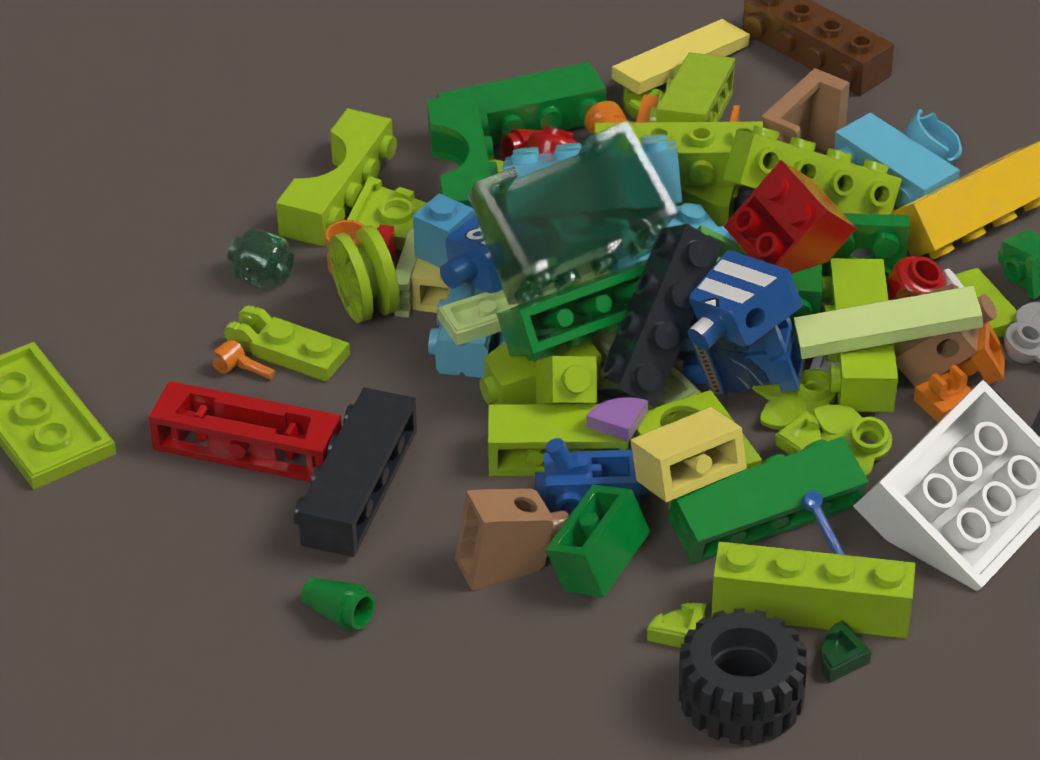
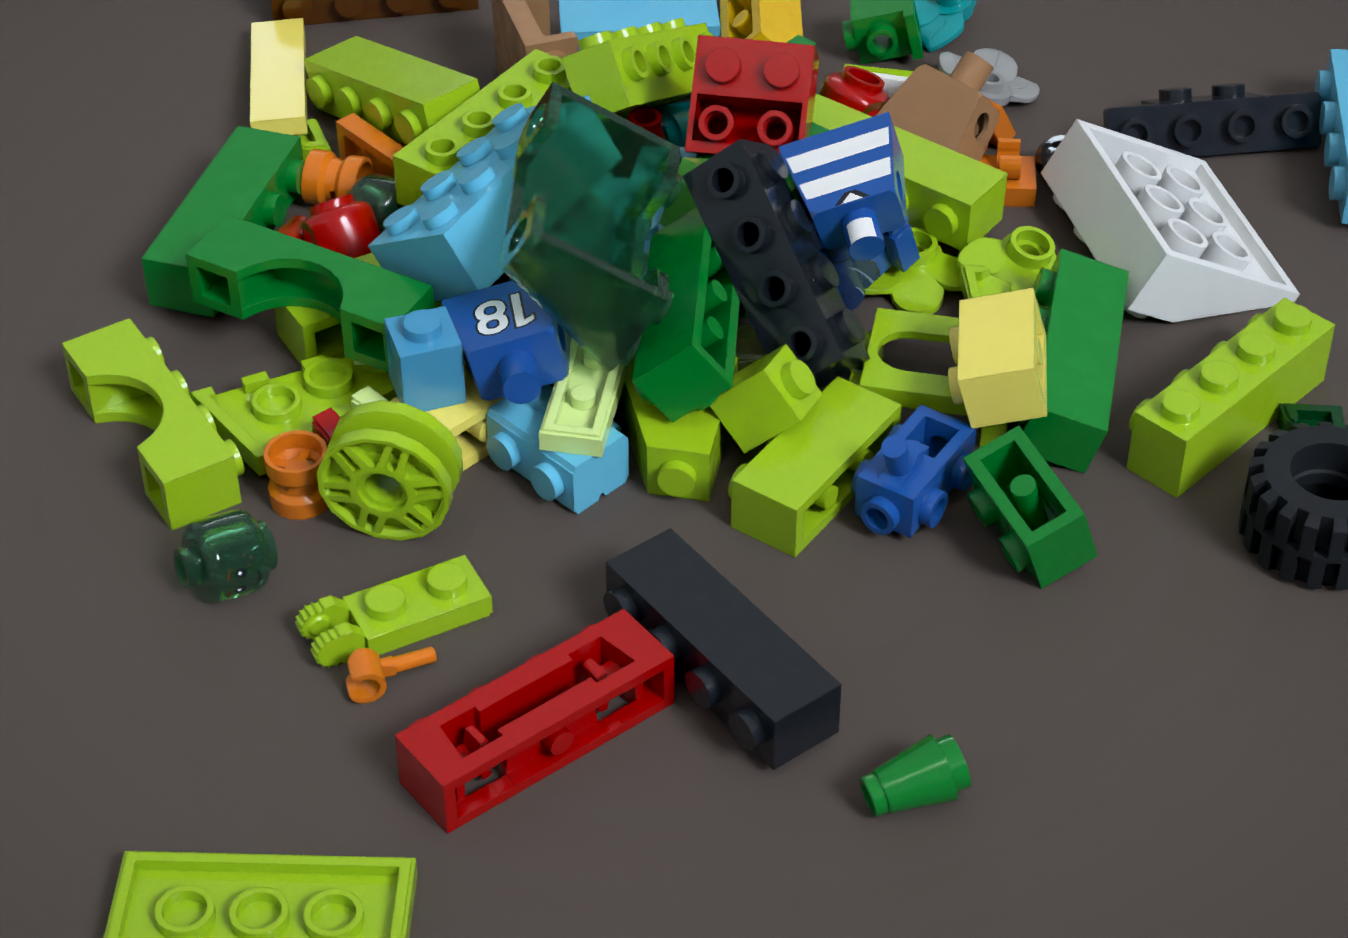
camera: 55 degrees left, 0 degrees up
(504, 535) = (953, 557): medium nougat torso -> none
(618, 417) = (870, 388): medium lavender tile -> none
(673, 626) = (1183, 524): lime tile -> none
(812, 501) = (1126, 321): blue hinge -> none
(888, 322) = (949, 117): yellowish green tile -> none

